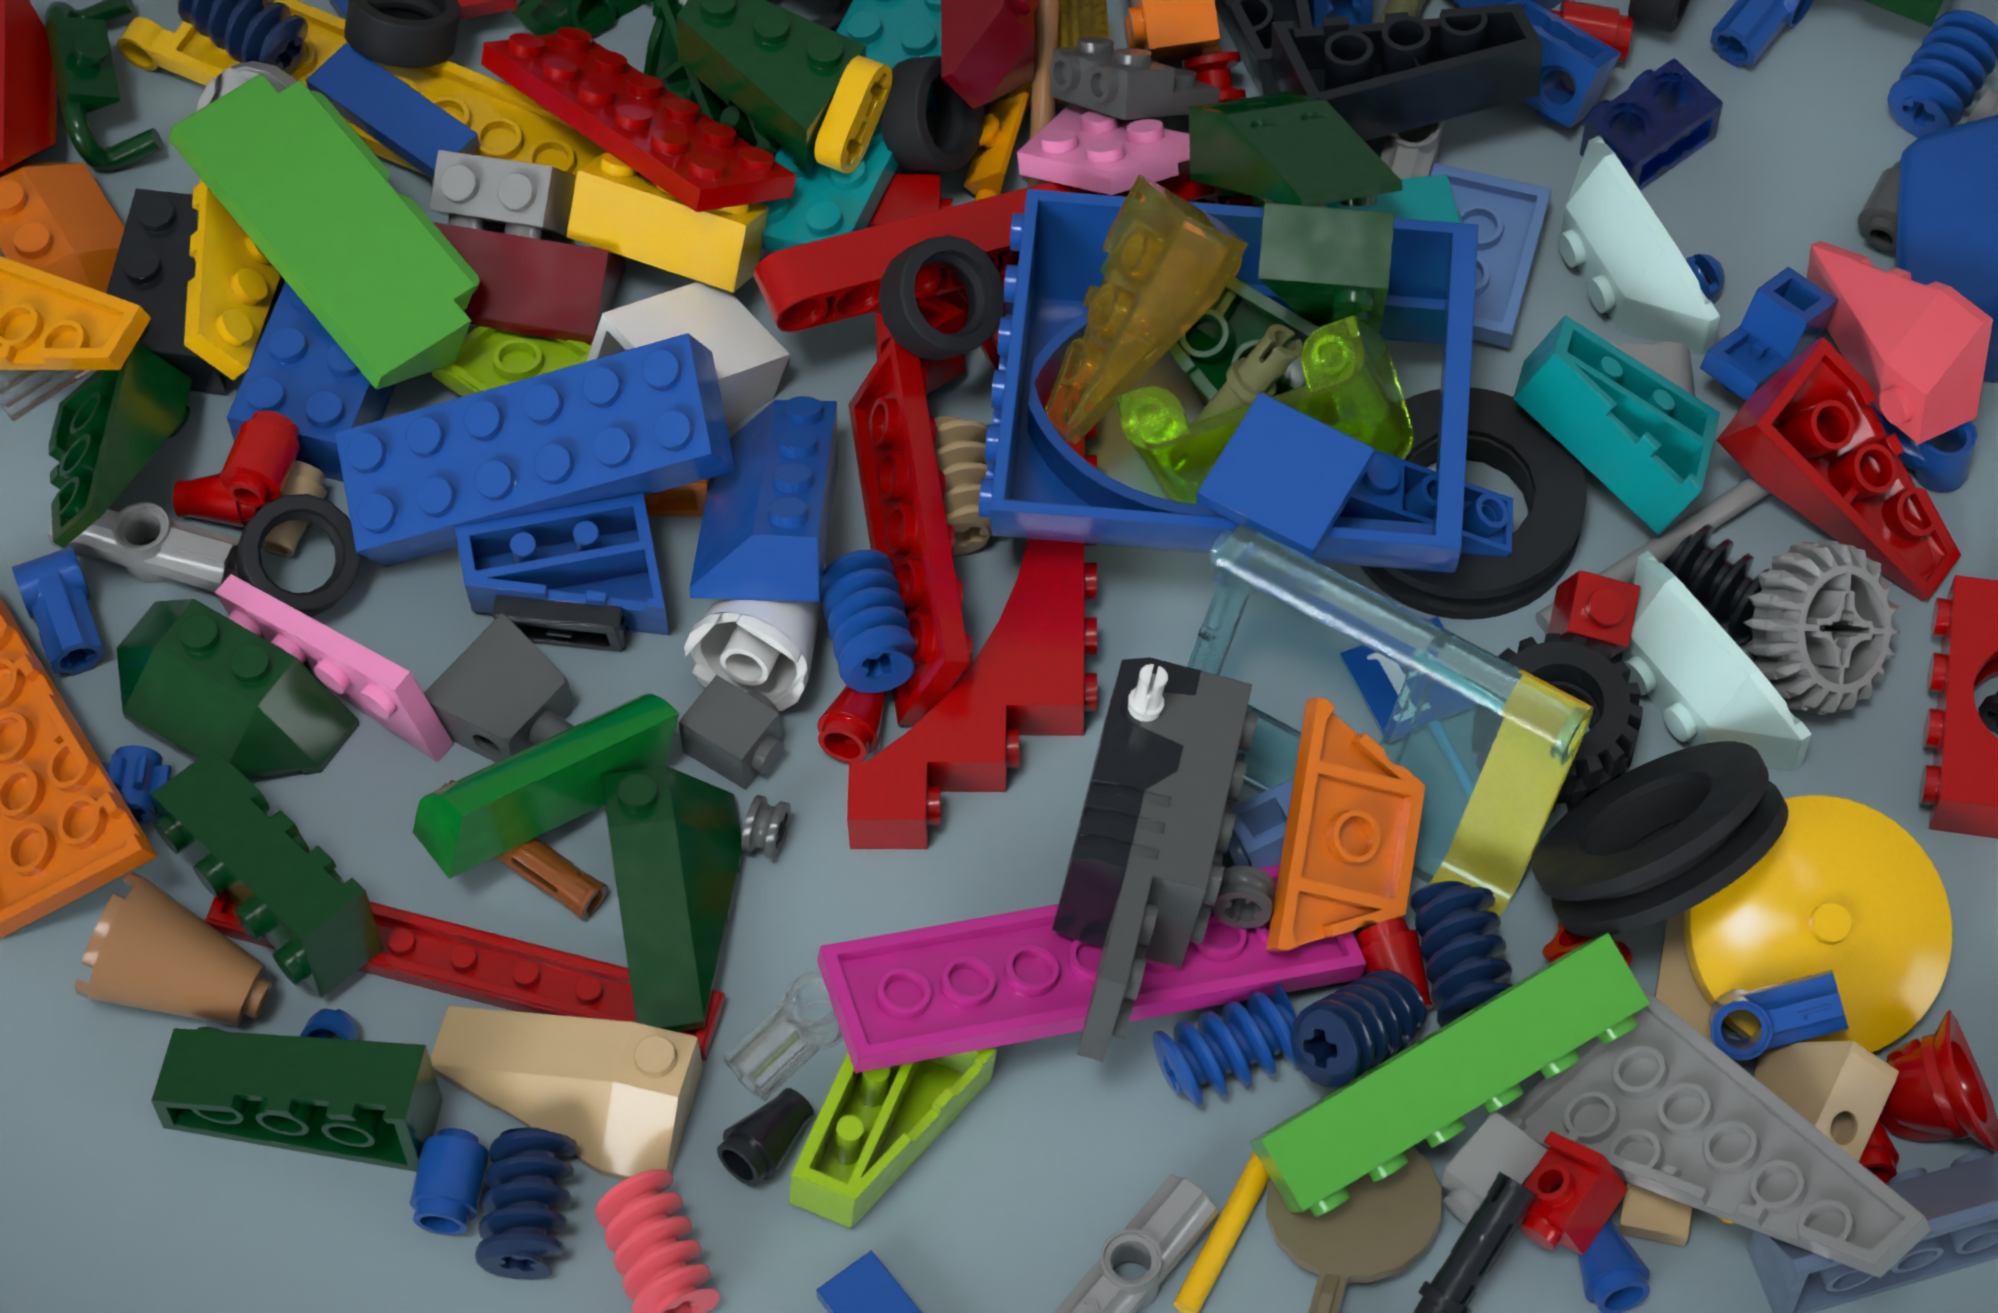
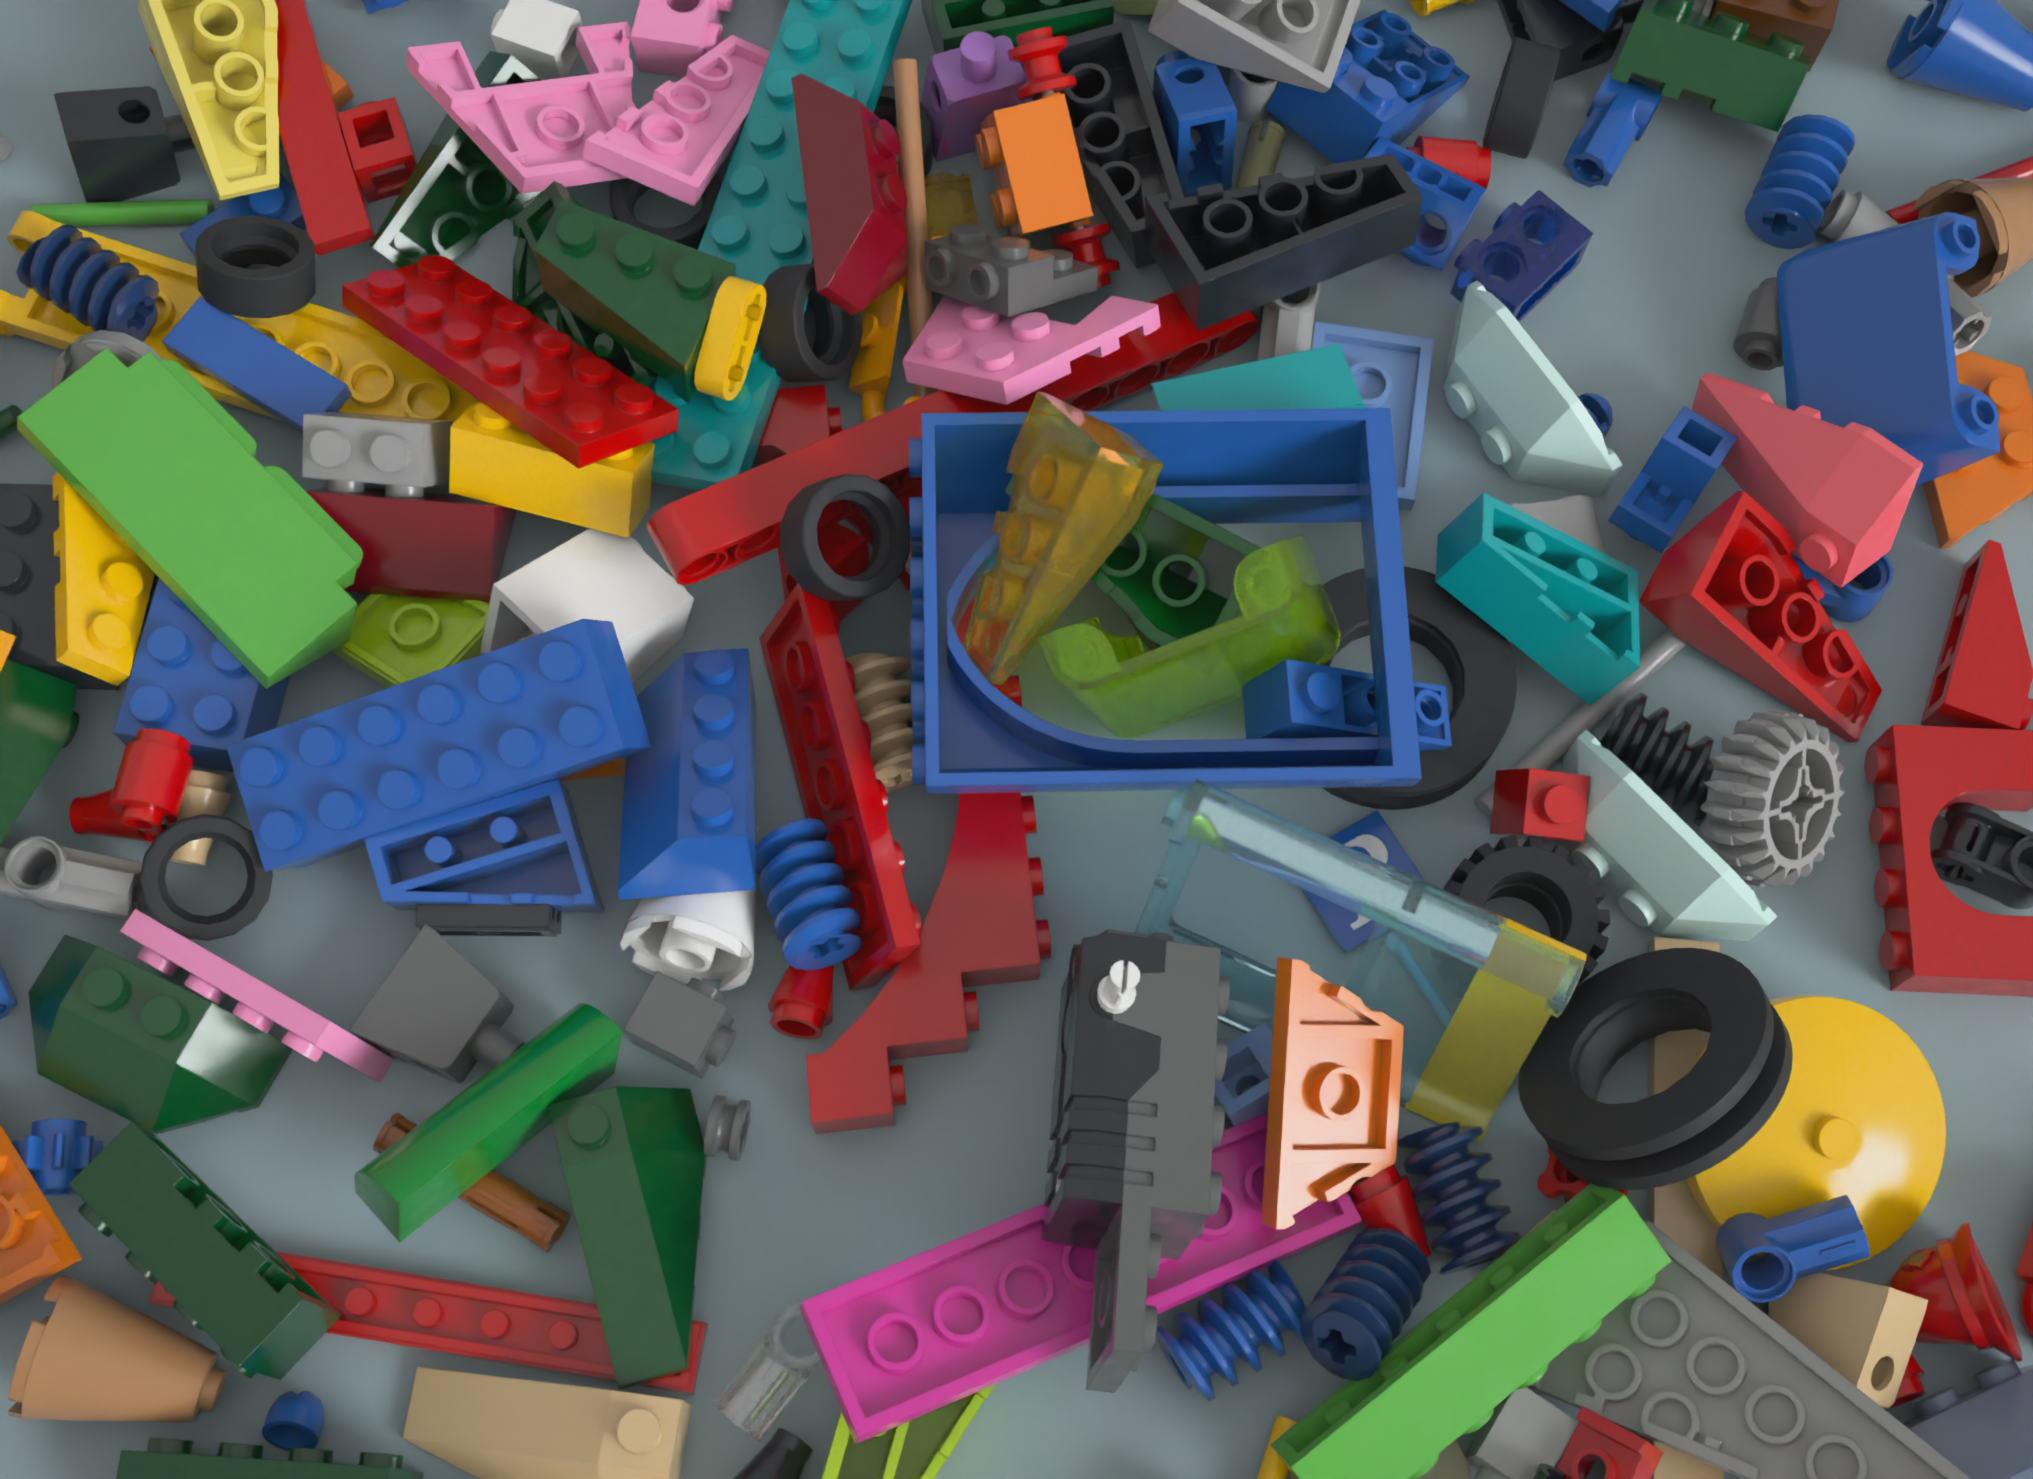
camera: 10 degrees left, 10 degrees up
(1245, 897) = (1239, 1172): dark grey bush -> none
(1255, 372) = (1180, 608): olive pin -> none
(1285, 152) = (1183, 347): dark green slope -> none
(1285, 475) = (1232, 719): blue tile -> none
(1327, 261) = (1255, 478): dark green wedge -> none

